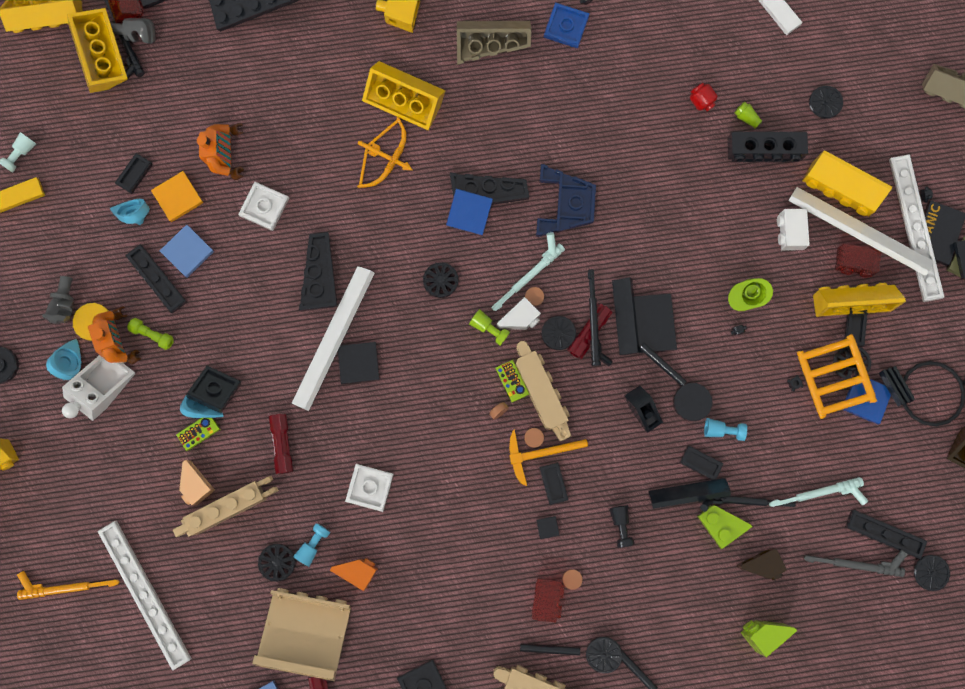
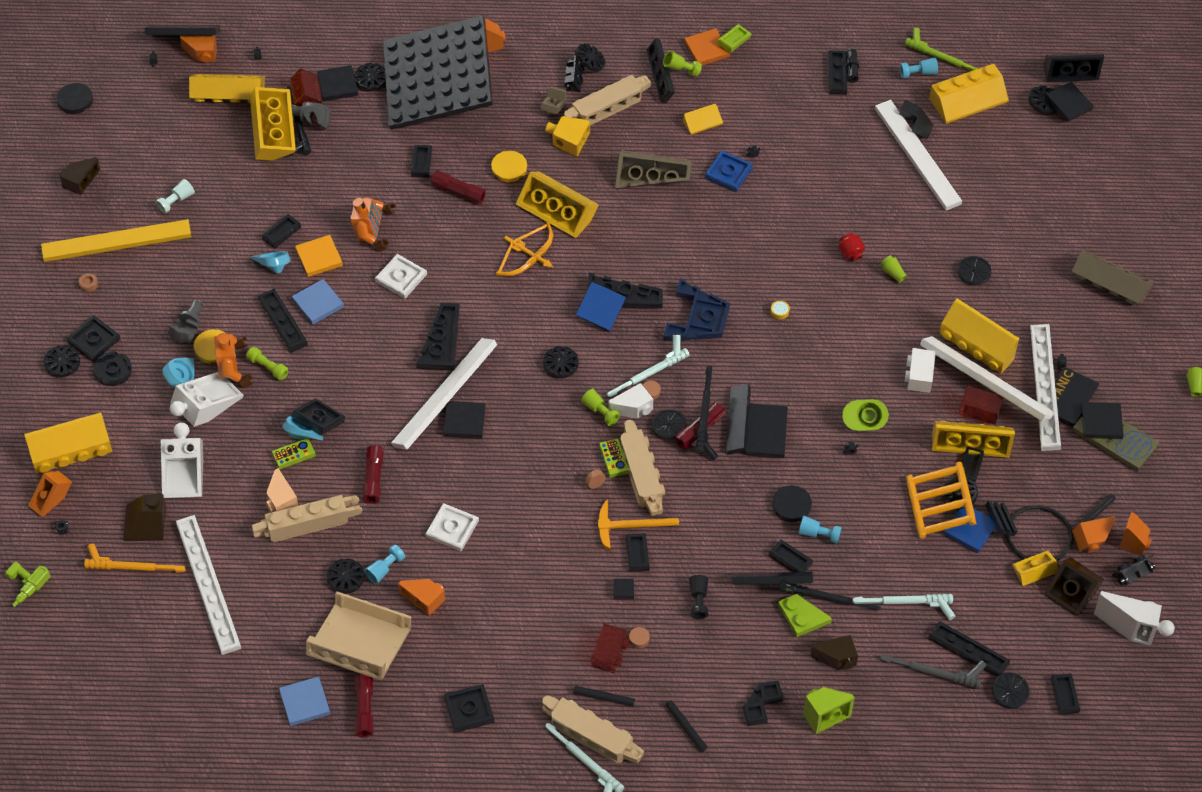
camera: 10 degrees right, 25 degrees down
(68, 535) = (145, 518): none -> dark brown slope
(89, 474) = (182, 469): none -> white slope
(258, 65) = (421, 161): none -> black tile
(288, 88) = (469, 191): none -> dark red axle
(347, 57) = (509, 166): none -> yellow tile
(534, 437) = (625, 509): nougat tile -> none
(604, 655) = (658, 707): black wheel -> none
(643, 408) = (741, 499): black slope -> none
(644, 181) = (780, 310): none -> tile
(662, 364) = (767, 464): black bar -> none
(699, 620) = (763, 694): none -> black tile
(775, 143) = (905, 293): black brick -> none
(795, 383) = (899, 503): black piece -> none
(935, 433) = (1035, 568): none -> yellow slope

